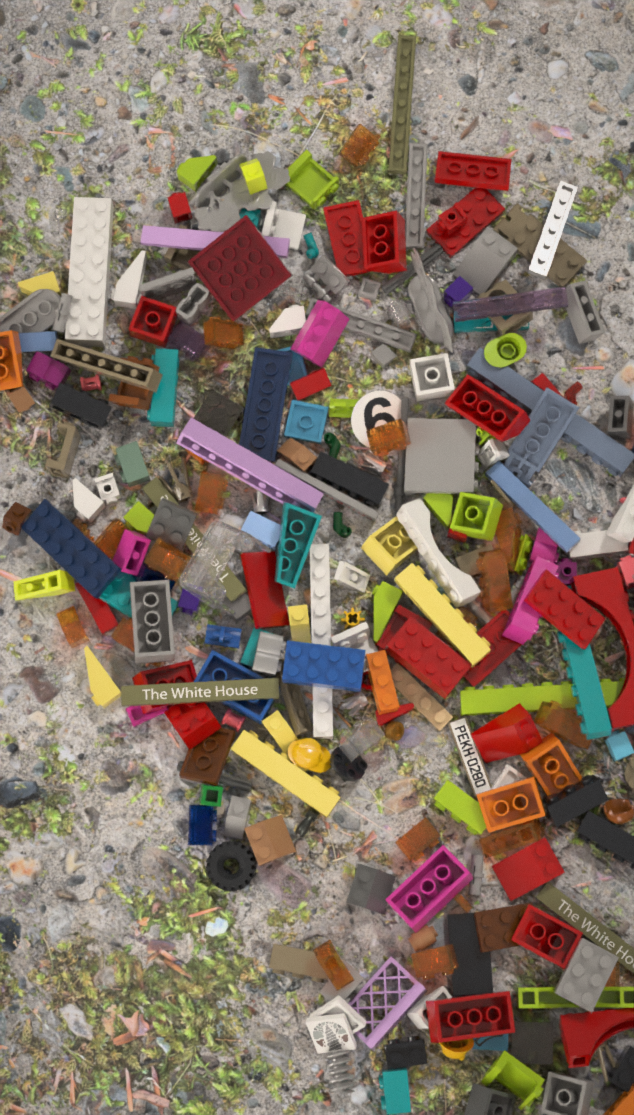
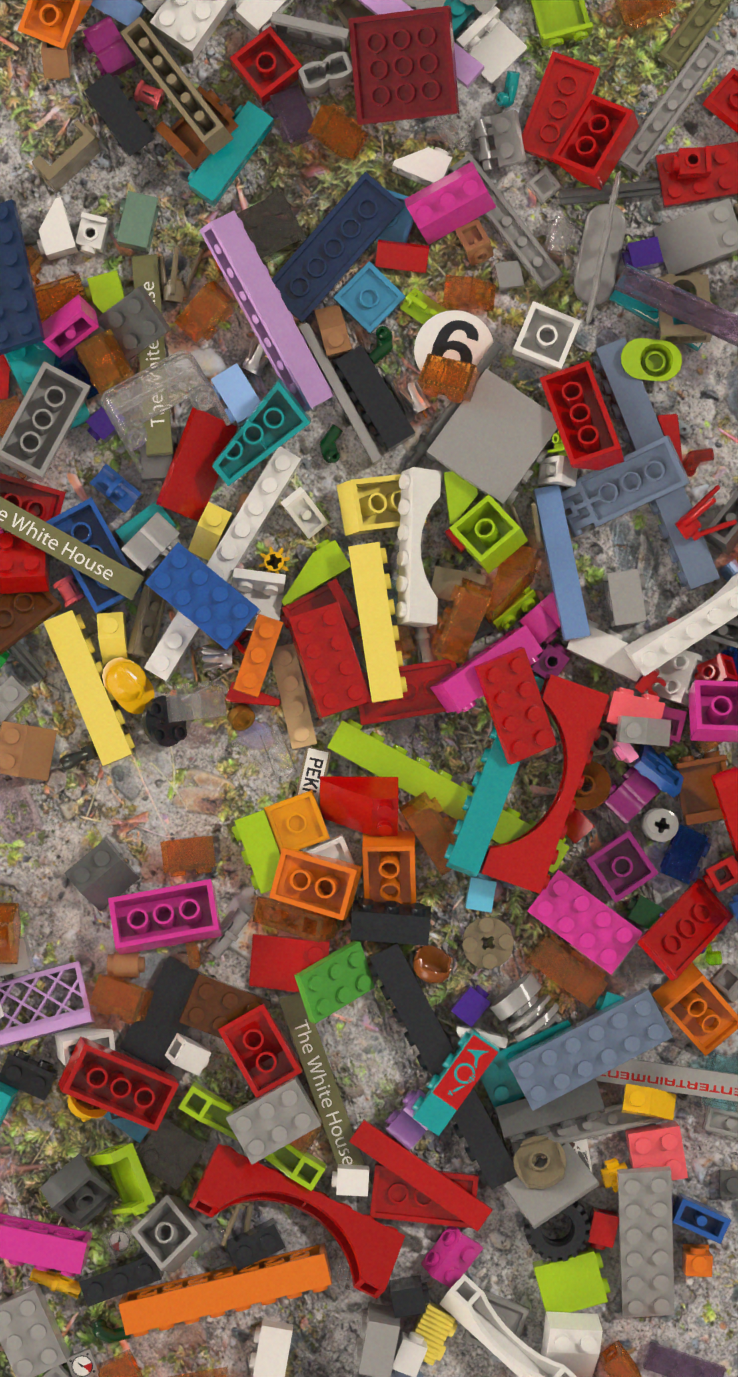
camera: 25 degrees right, 10 degrees up
(349, 348) = (475, 242): none -> medium nougat bracket
(365, 381) = (468, 293): none -> clear orange slope
(473, 774) = (297, 822): none -> light orange tile
(501, 970) = (188, 1054): none -> white brick
(565, 860) = (334, 981): none -> bright green plate
(586, 503) = (625, 598): none -> light grey brick
(596, 433) = (689, 524): none -> red plant

